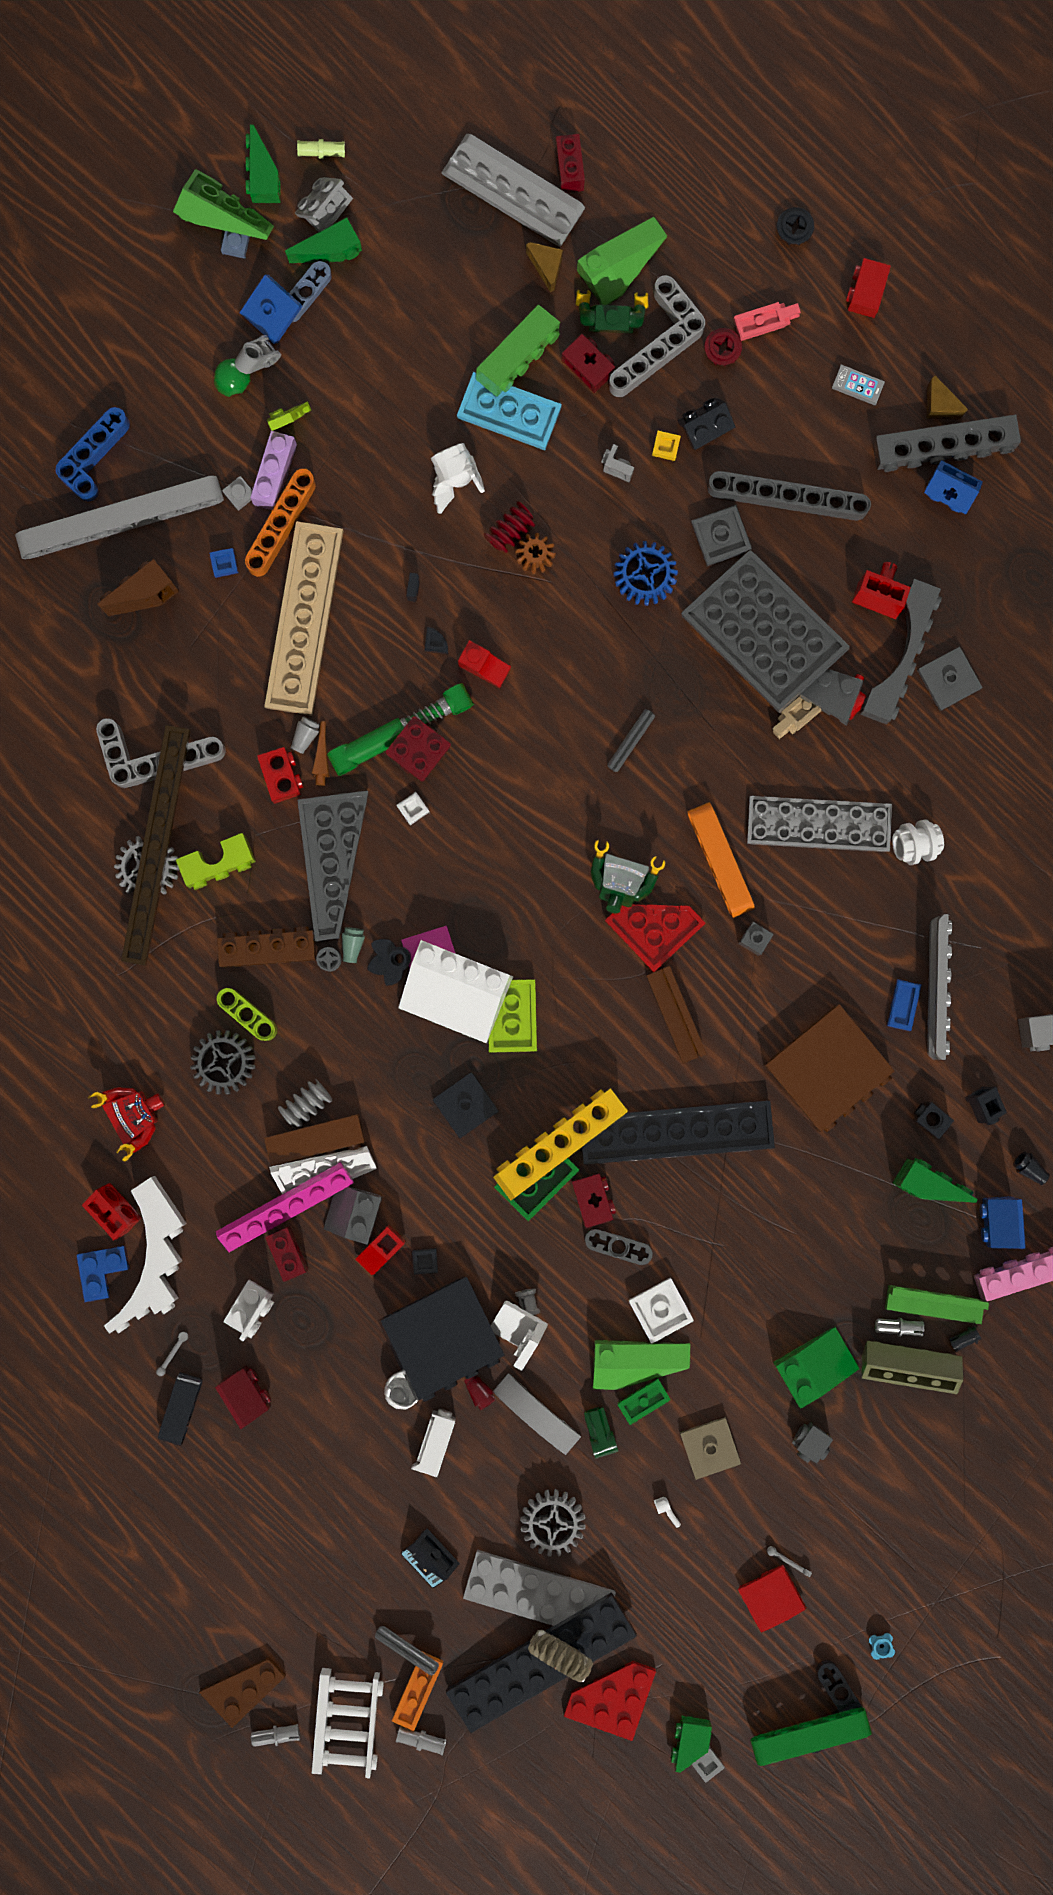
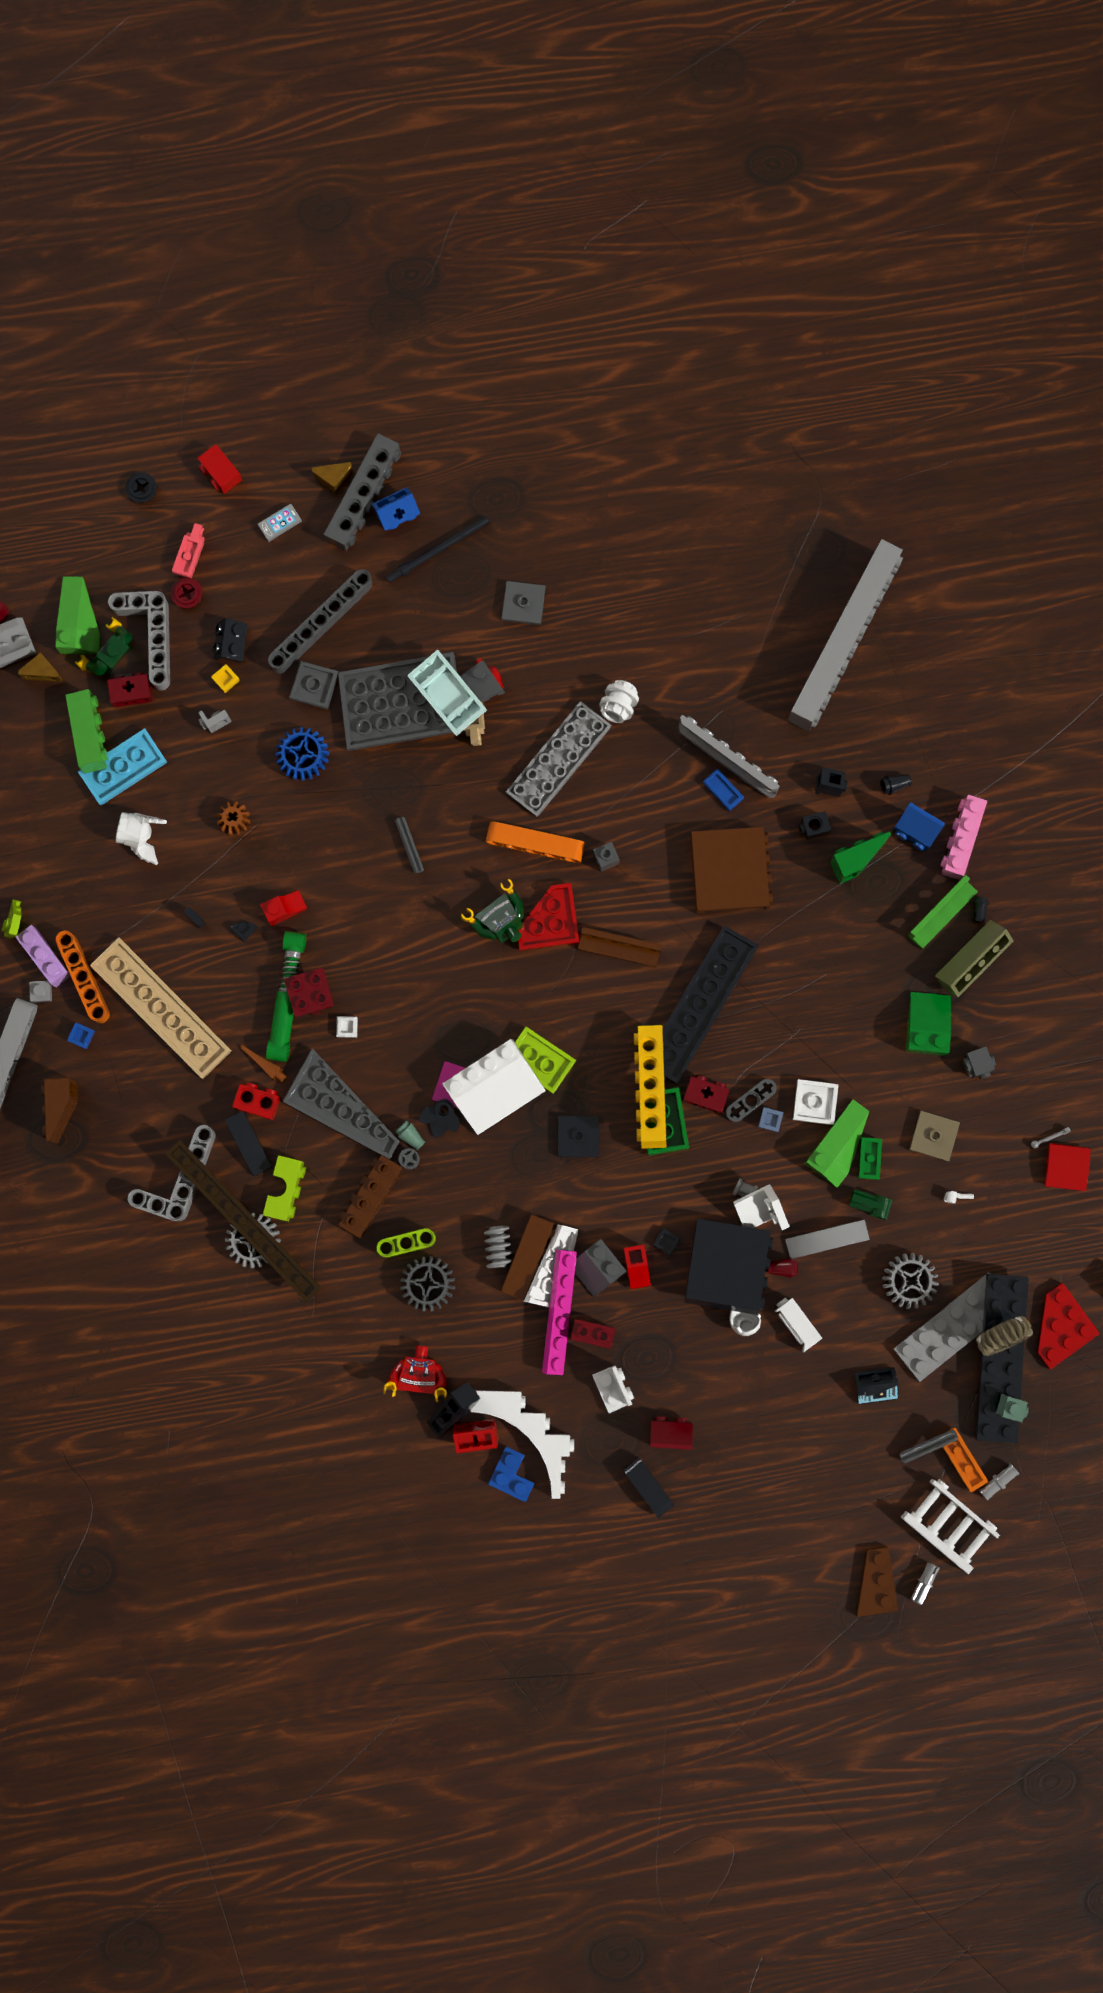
camera: 50 degrees left, 5 degrees down
(121, 1173) = (453, 1409): none -> black slope
(183, 1336) = (599, 1450): light grey hinge -> none
(235, 796) = (248, 1143): none -> black slope
(304, 734) = (241, 1065): light grey cone -> none
(498, 1708) = (1012, 1408): none -> sand green brick
(510, 527) = (203, 822): dark red piece -> none
(613, 1279) = (770, 1119): none -> sand blue plate
(804, 669) = (447, 692): none -> light aqua slope
(882, 592) = (432, 605): red brick -> none
(883, 698) = (459, 589): dark grey arch -> none
(899, 539) = (404, 569): none -> black bar
(899, 1327) = (941, 948): light grey axle -> none

